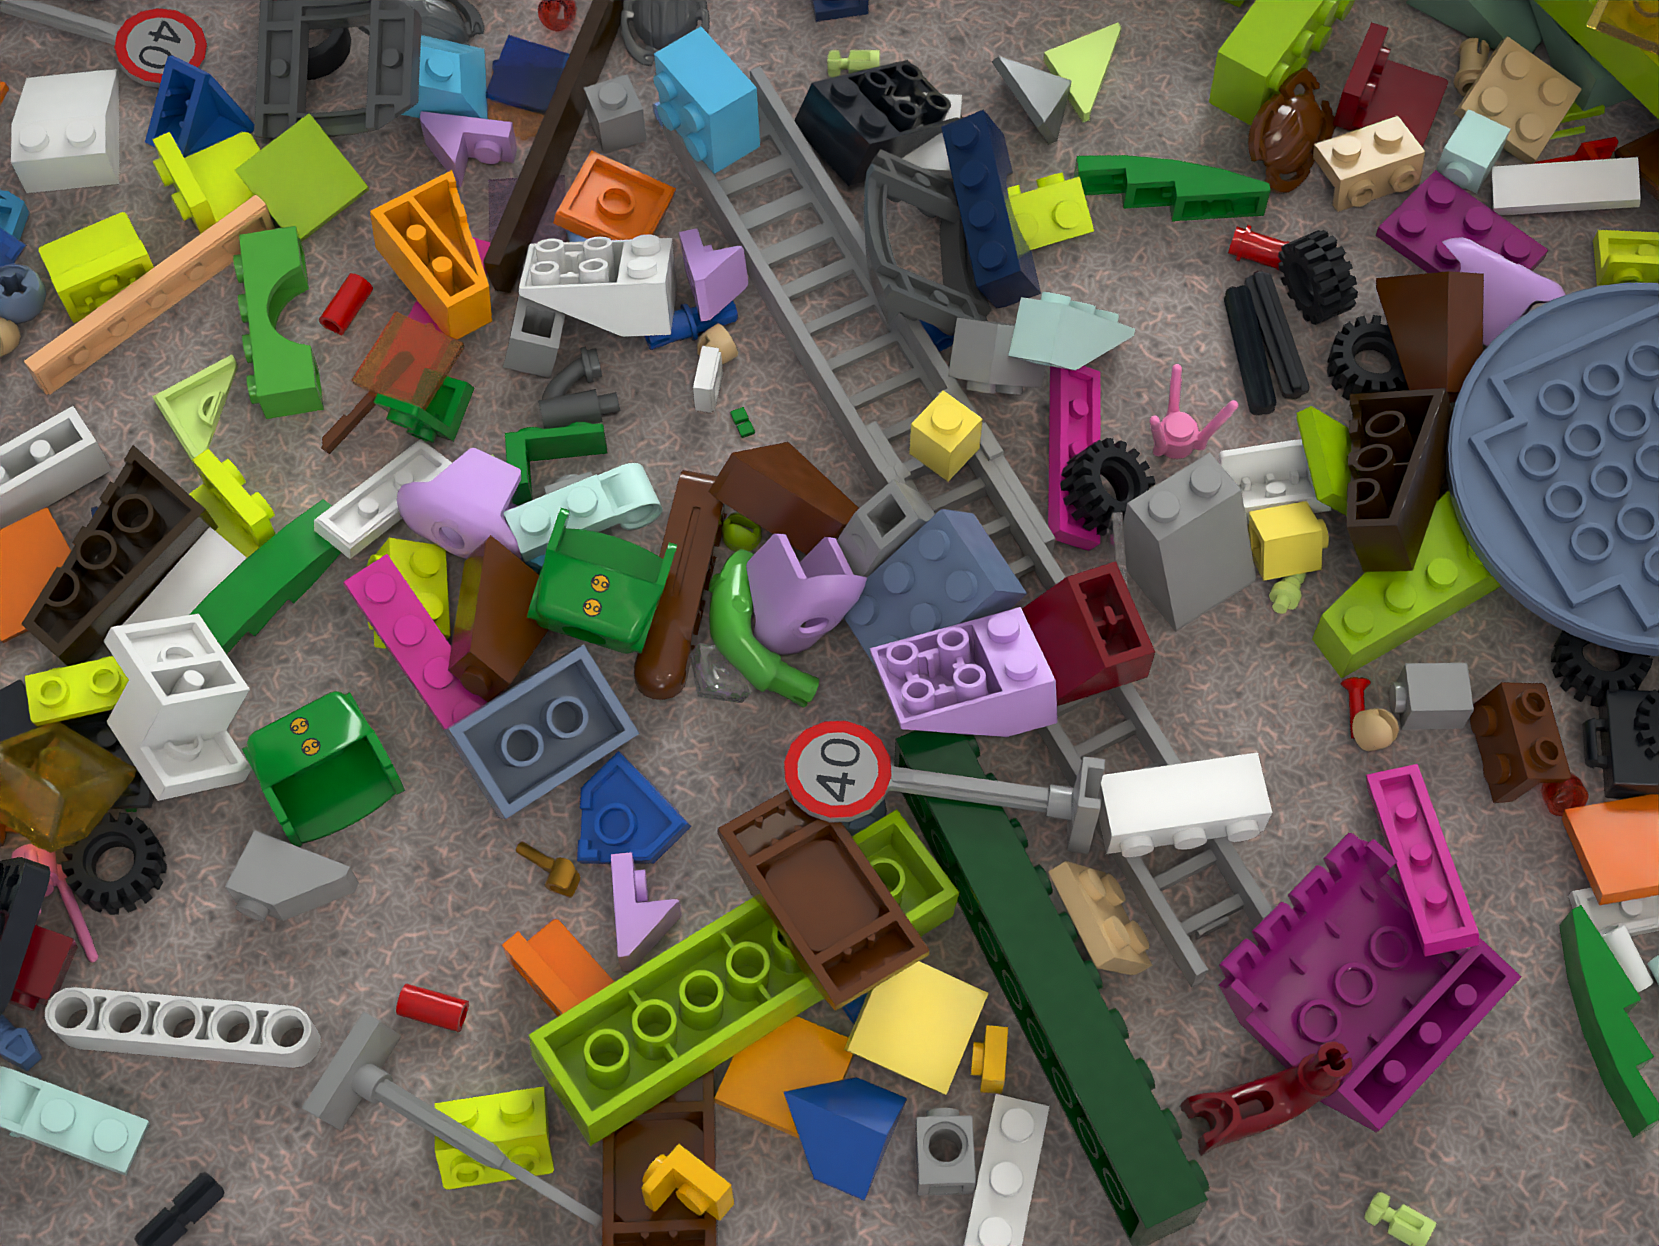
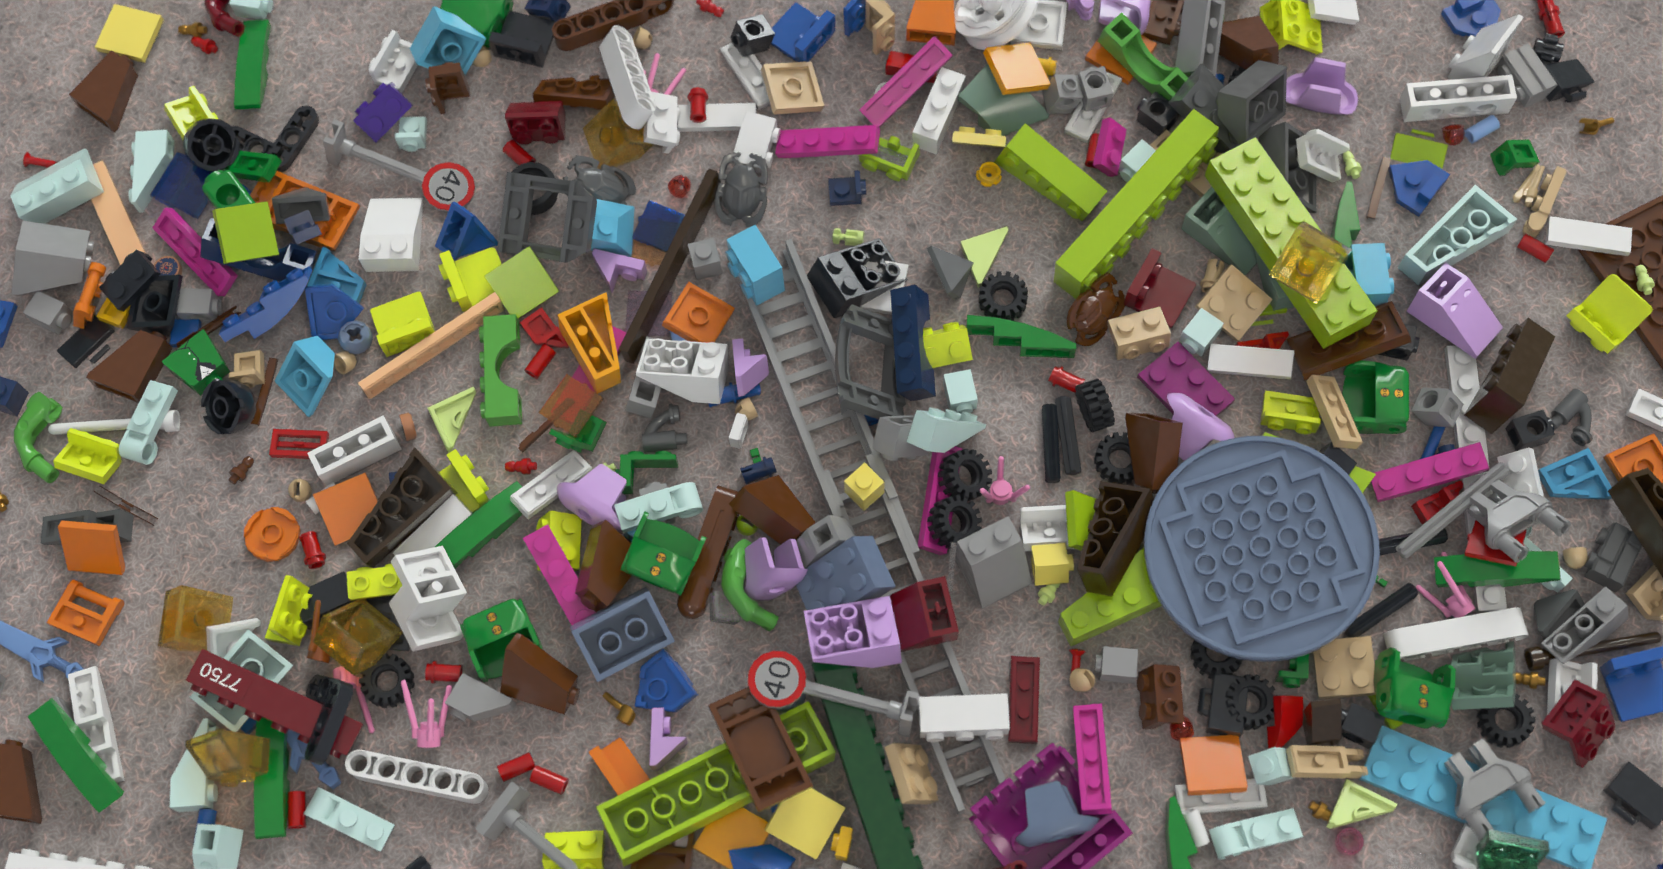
camera: 10 degrees right, 5 degrees up
(119, 428) = (408, 426): none -> nougat tile
(201, 947) = (429, 732): none -> bright pink plant
(216, 838) = (443, 672): none -> red pin
(332, 476) = (523, 466): none -> red piece
(343, 252) = (543, 330): none -> red slope
(369, 991) = (516, 767): none -> red piece
(393, 824) = (537, 677): none -> reddish brown slope
(759, 434) = (758, 470): none -> dark blue pin
(1083, 275) = (960, 391): none -> light aqua brick
(1125, 394) = (977, 470): none -> black tyre
(1134, 108) = (1008, 283): none -> black tyre
(1273, 733) = (1024, 700): none -> dark red tile
(1375, 960) = (1052, 816): none -> sand blue piece

